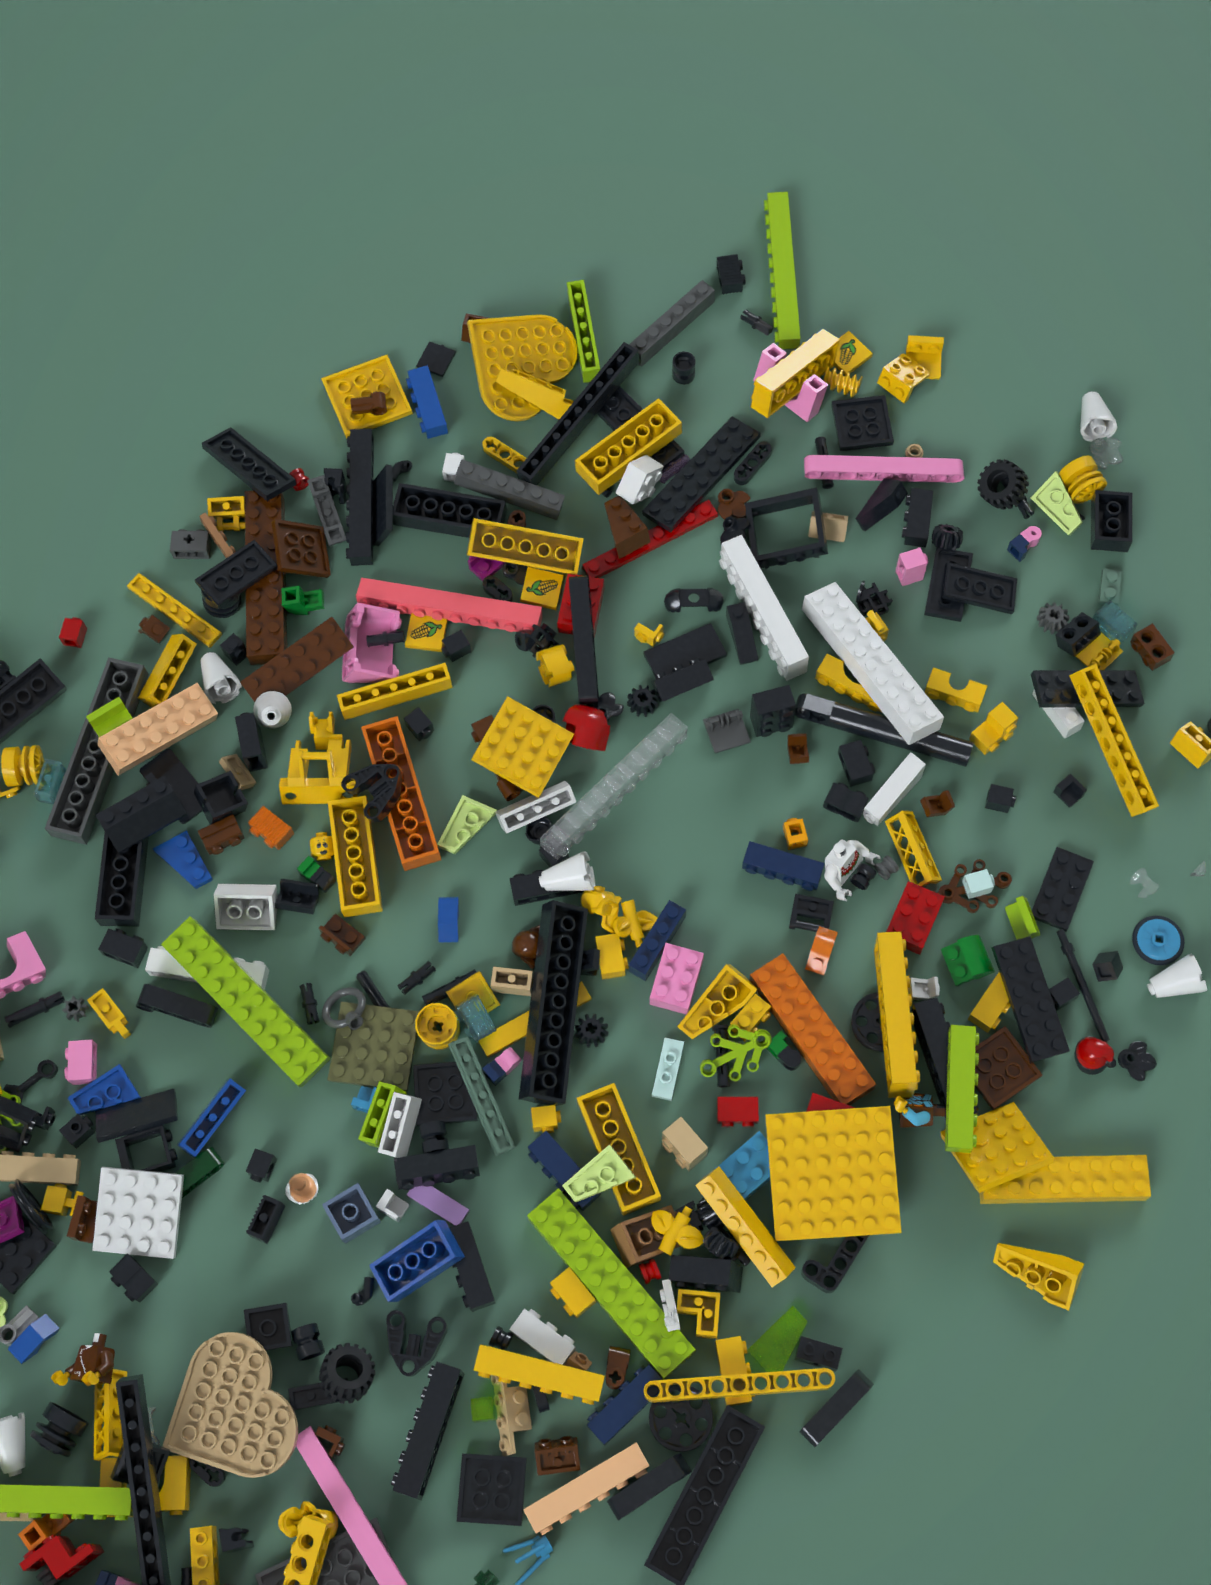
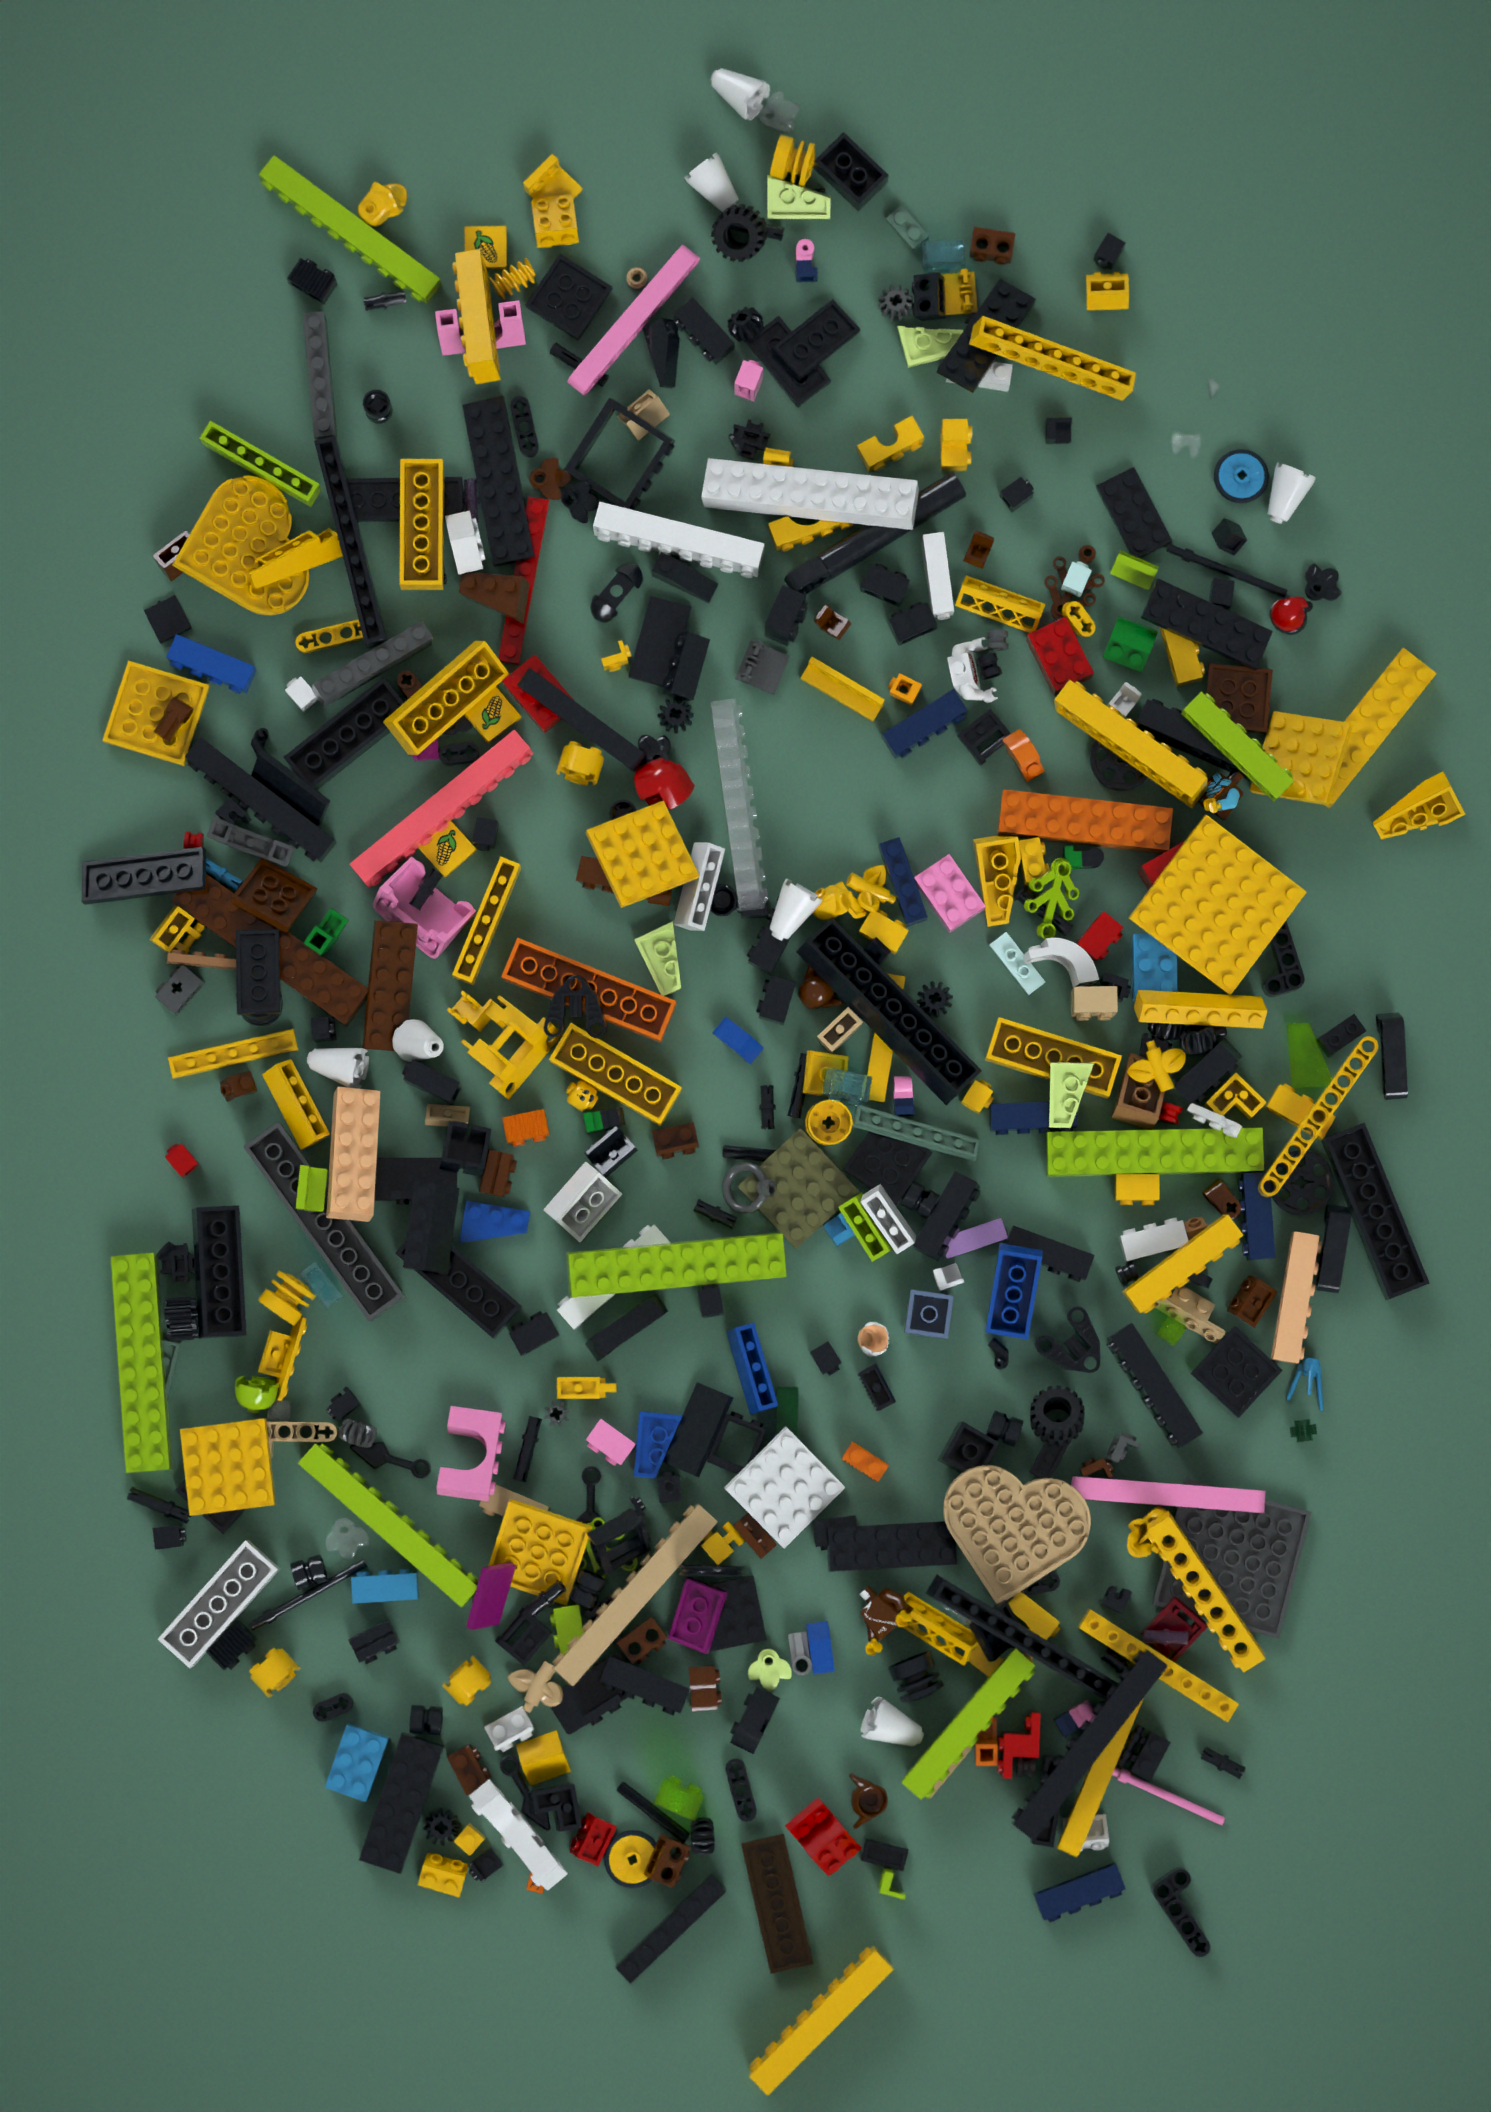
camera: 55 degrees left, 15 degrees up
(148, 1326) = (890, 1546): none -> black plate
(202, 1256) = (865, 1461): none -> orange brick
(238, 1048) = (710, 1301): none -> black brick
(290, 508) = (222, 875): none -> dark azure pin
(356, 1444) = (1117, 1448): none -> dark grey bracket
(419, 724) = (535, 924): black brick -> none
(499, 922) = (776, 1000): none -> black brick
(530, 641) = (541, 766): black piece -> none
(704, 1095) = (1070, 955): none -> white arch
(714, 1150) = (1121, 983): none -> black bracket
(758, 794) = (842, 689): none -> yellow fence
(817, 273) = (382, 203): none -> yellow head
(947, 908) = (1082, 616): none -> yellow beam
(1021, 443) = (713, 183): none -> white cone
(1041, 656) = (926, 345): none -> yellowish green wing

